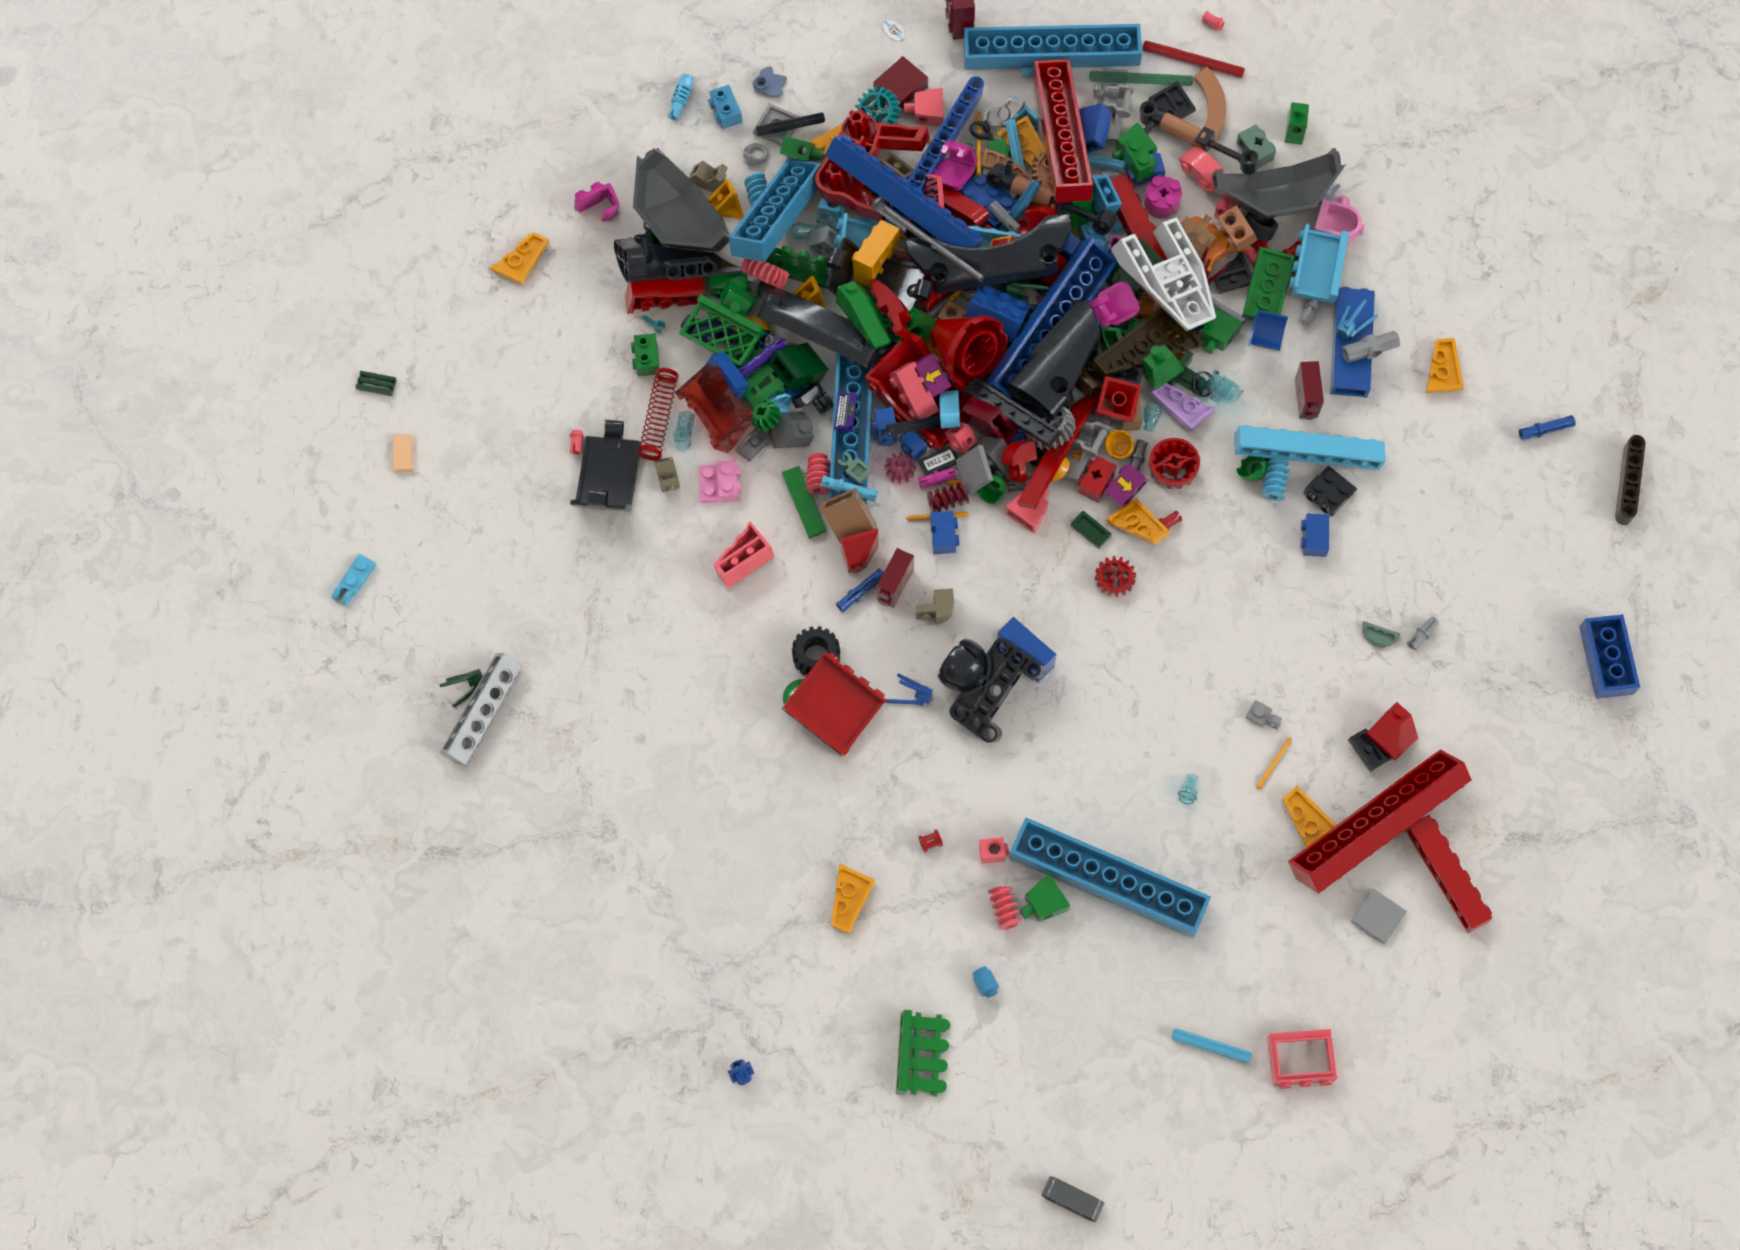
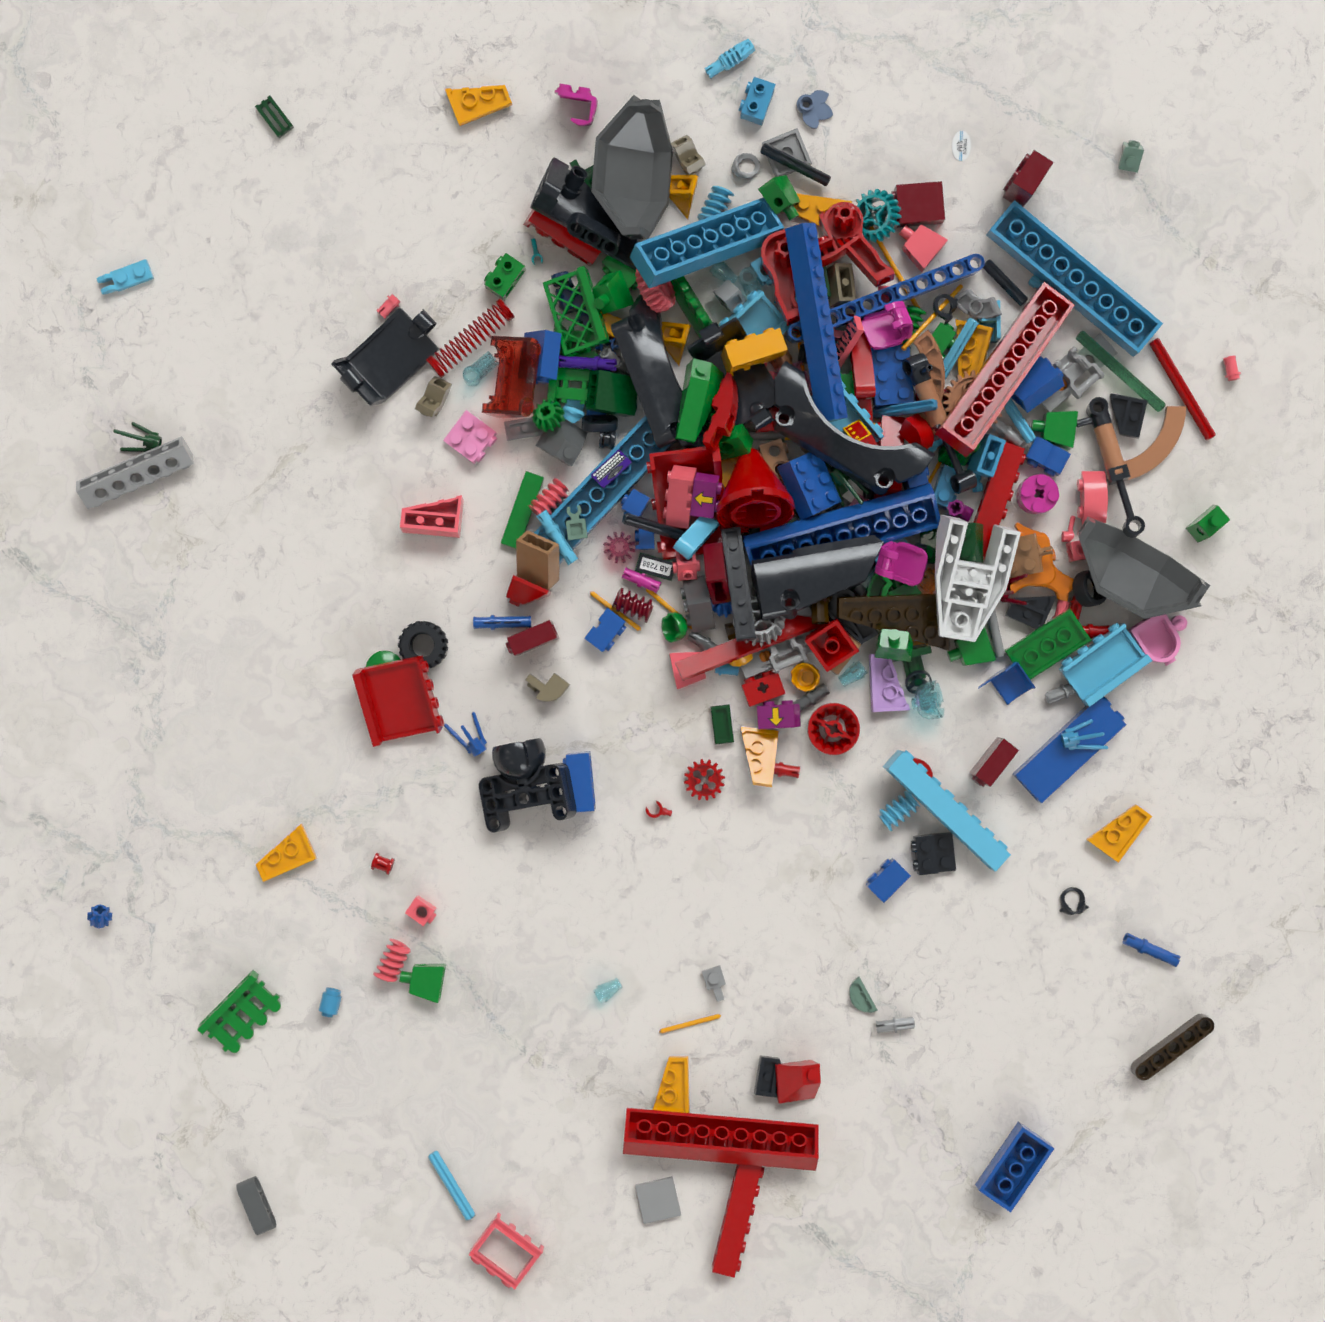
camera: 40 degrees right, 20 degrees up
(402, 453) = (247, 198): light nougat tile -> none
(879, 206) = (793, 350): flat silver bar -> none
(974, 469) = (671, 603): light grey tile -> none
(1004, 216) = (888, 405): light grey axle -> none
(1008, 87) = (996, 273): none -> black axle
(1015, 457) = (712, 621): red brick -> none
(1058, 487) = (727, 669): none -> dark azure pin
(1105, 625) = (663, 811): none -> red piece
(1109, 877) = (486, 1006): dark azure brick -> none
(1137, 158) = (1044, 447): green brick -> none
(1210, 207) = (1068, 535): none -> coral hand
(1239, 227) = (1070, 579): nougat brick -> none
(1252, 468) = (888, 786): green hair -> none
(1256, 140) = (1164, 506): sand green brick -> none
(1371, 346) = (1075, 771): light grey piece -> none
(1469, 440) = (1081, 905): none -> black piece

